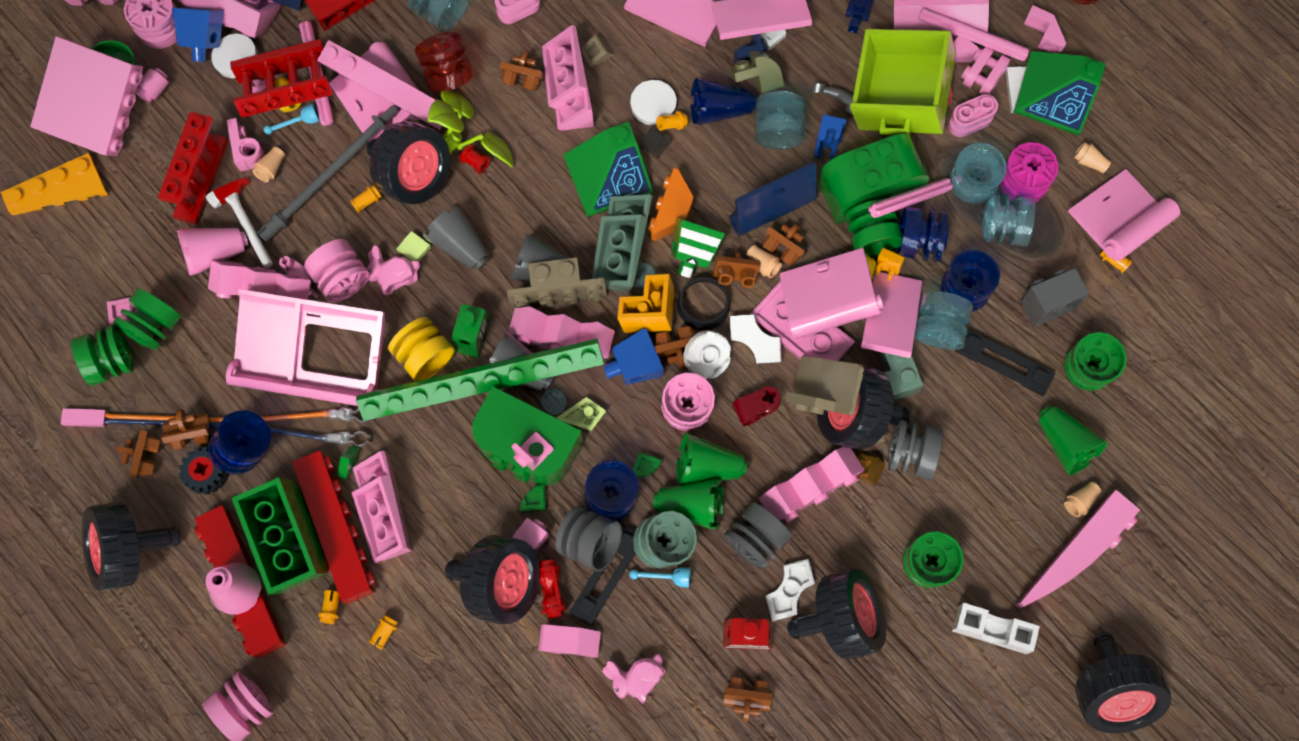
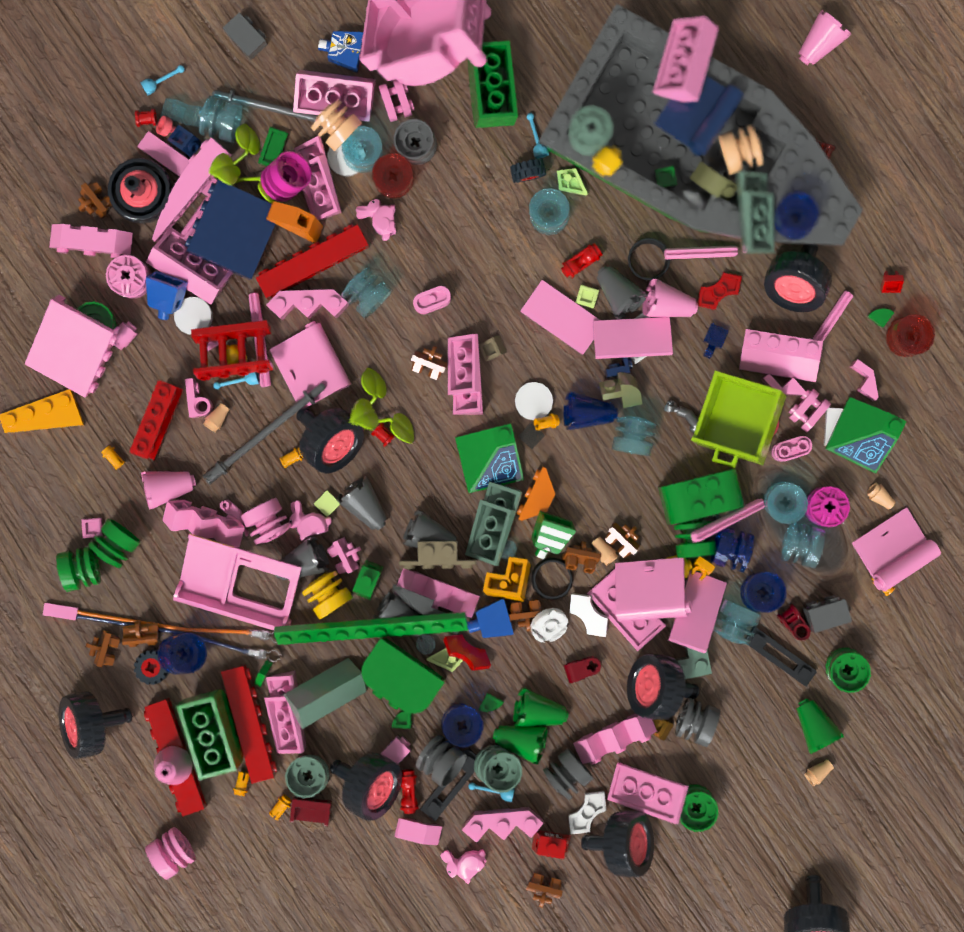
camera: 10 degrees right, 15 degrees up
(143, 224) = (110, 454): none -> light orange pin
(230, 194) = (183, 438): white piece -> none
(370, 22) = (307, 302): none -> bright pink brick
(377, 81) = (313, 364): bright pink slope -> none
(397, 309) = (309, 557): none -> dark grey cone
(411, 568) = (296, 776): none -> sand green wheel
(423, 631) = (311, 810): none -> dark red panel
(430, 471) = (325, 692): none -> sand green slope
(443, 300) = (347, 554): none -> bright pink hips
(444, 61) = (366, 351): clear red wheel -> none
(523, 456) = (400, 701): bright pink bracket -> none
(539, 339) = (418, 602): none -> dark grey slope
(615, 406) = (458, 647): none -> red tile
(679, 613) = (502, 822): none -> bright pink brick
(685, 388) = (533, 673): bright pink wheel -> none
(774, 200) = (618, 506): dark blue door -> none
(826, 386) = (634, 670): dark tan bracket -> none
(829, 135) = (671, 454): blue hinge -> none
(866, 545) = (647, 793): none -> bright pink tile
(973, 34) = (803, 380): bright pink axle -> none
(995, 630) = (734, 862): white arch -> none
(1014, 317) = (793, 622): none -> dark red piece
(1091, 541) = (812, 810): bright pink slope -> none

